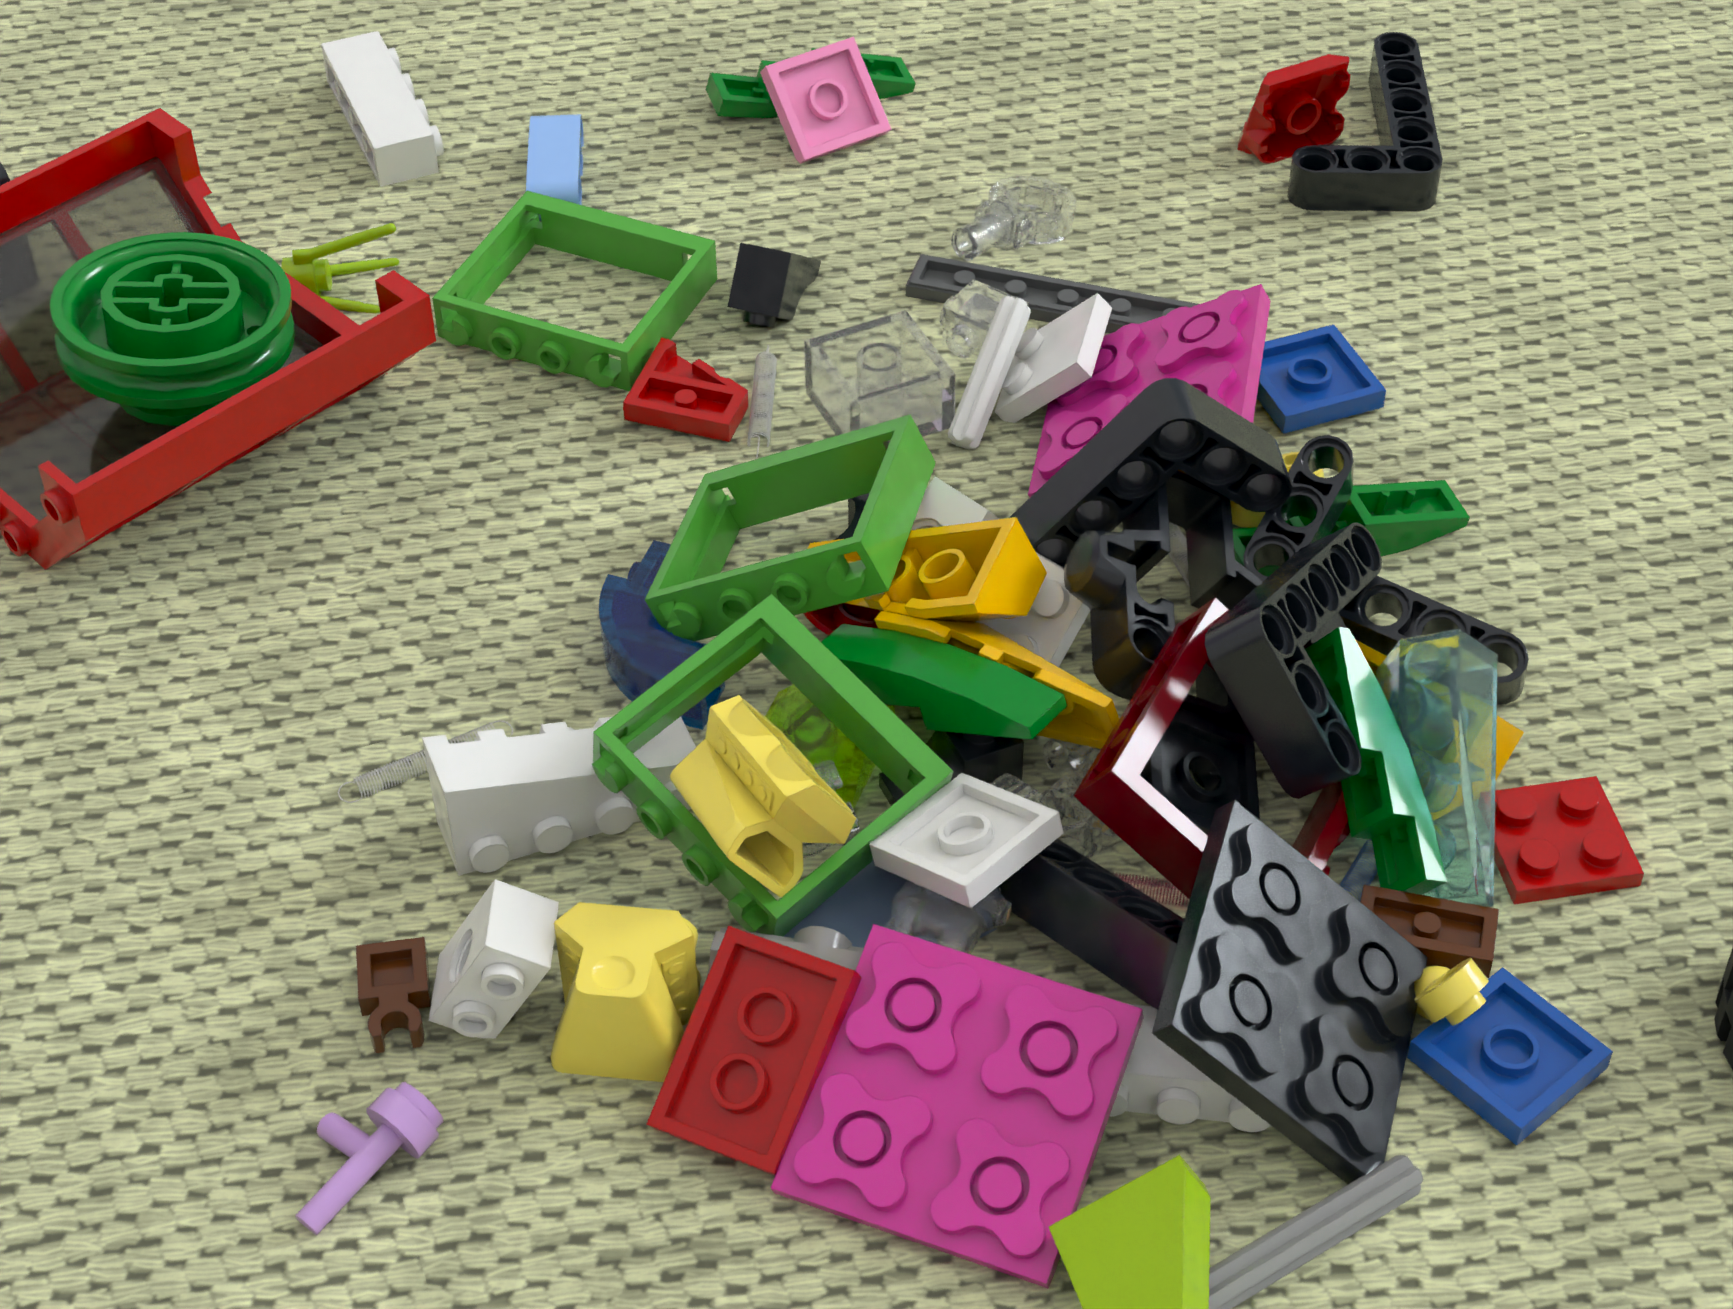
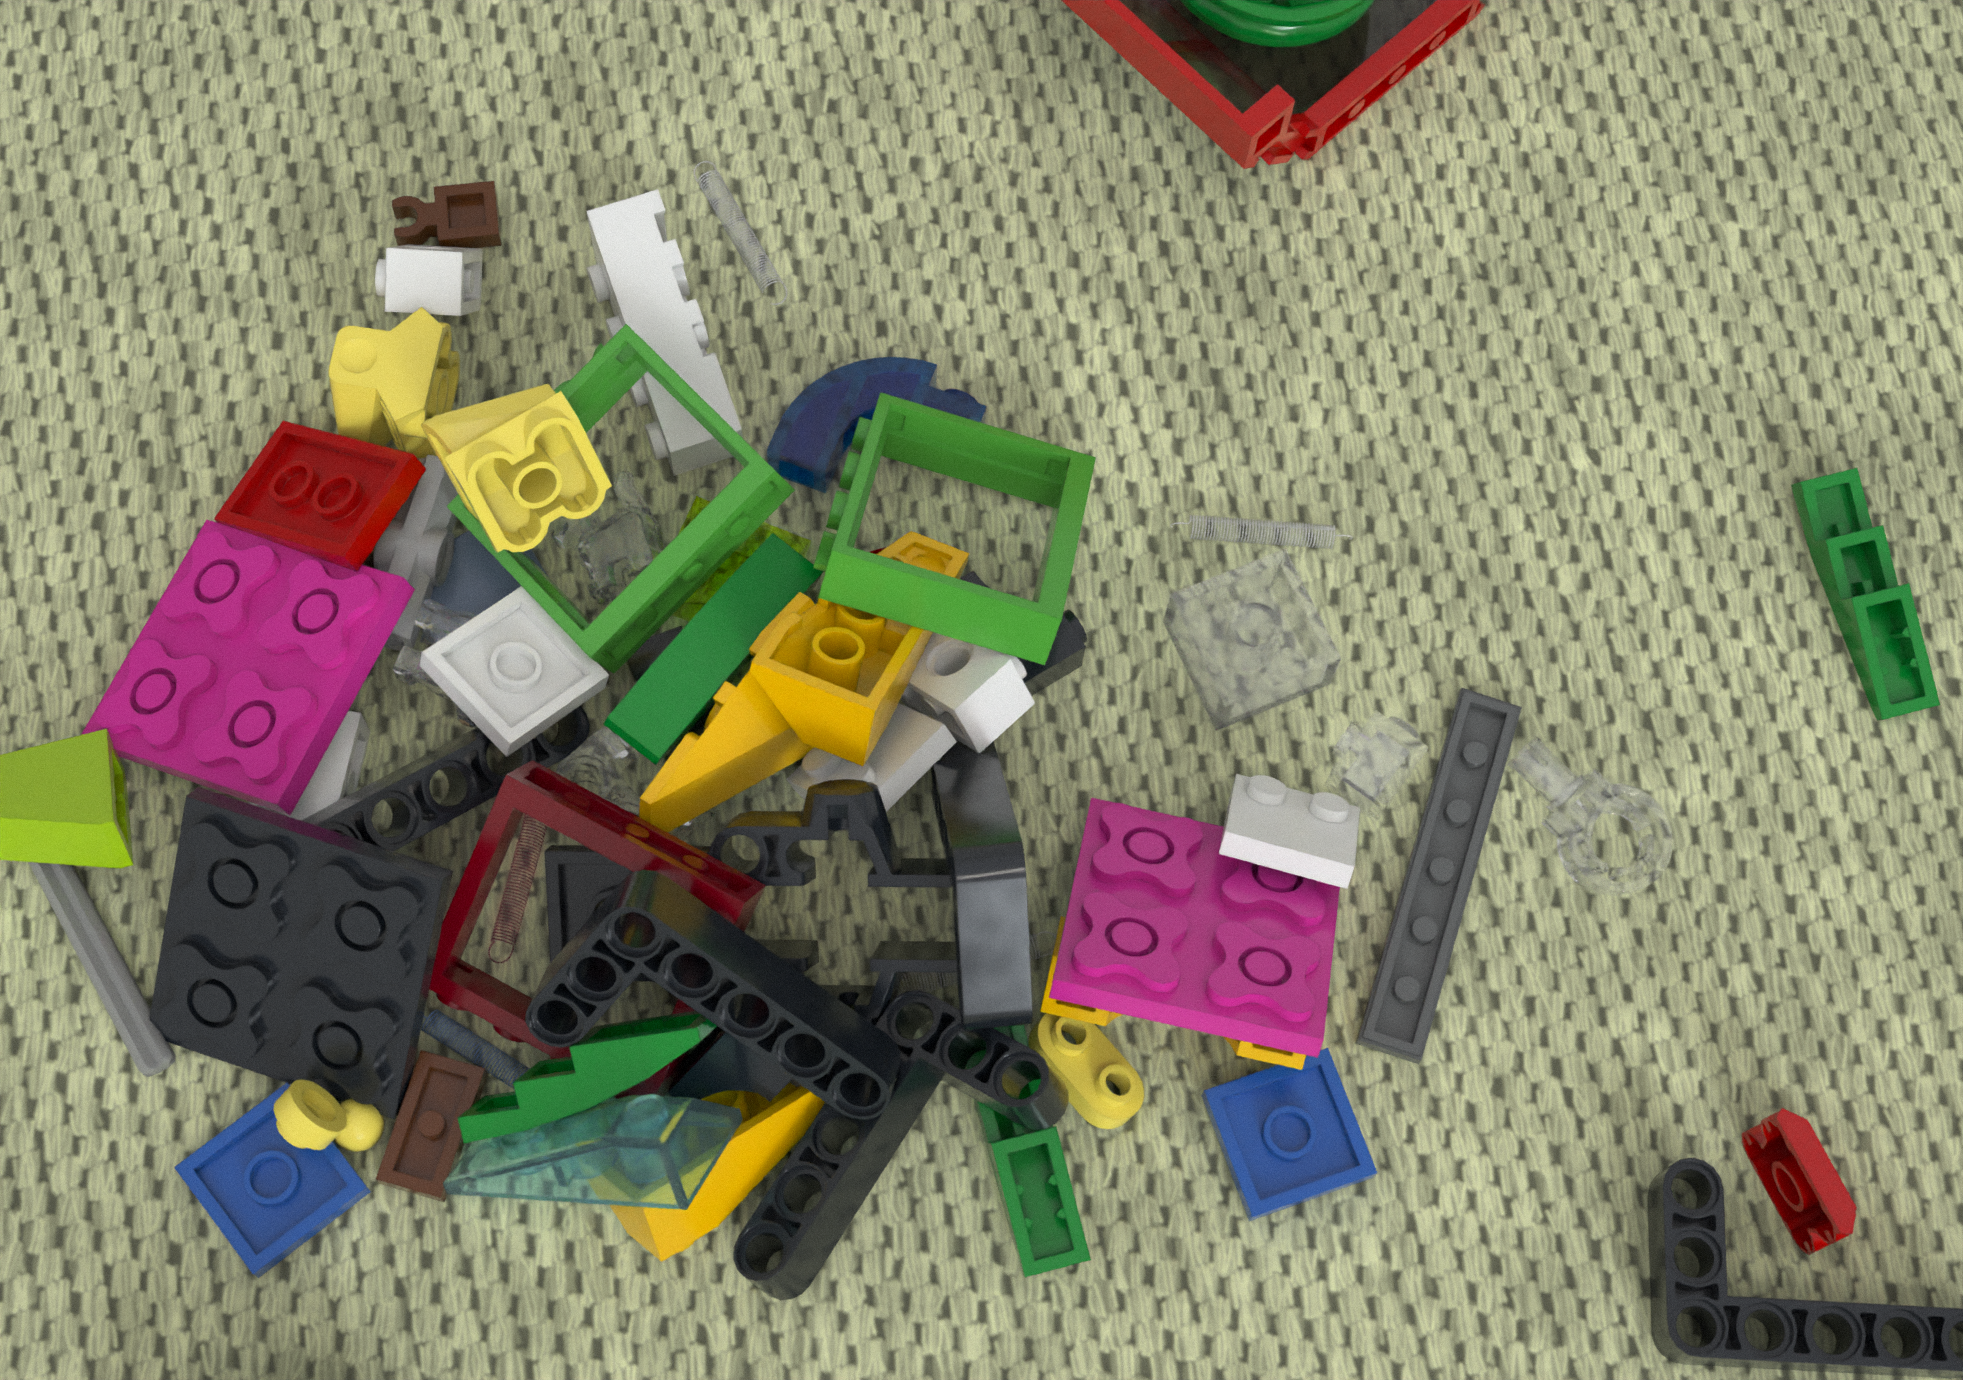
camera: 85 degrees right, 25 degrees up
(317, 273) = (1460, 75): lime plant -> none
(382, 108) = (1774, 115): white brick -> none
(402, 1120) = (299, 225): lavender piece -> none
(555, 157) = (1670, 303): light blue beam -> none
(588, 234) = (1467, 242): bright green window -> none
(685, 396) = (1260, 449): red wing -> none
(770, 283) = (1452, 534): black arch -> none
(825, 100) = (1800, 598): bright pink plate -> none
(989, 373) = (1270, 759): white axle -> none
(1561, 842) = (550, 1287): red plate -> none

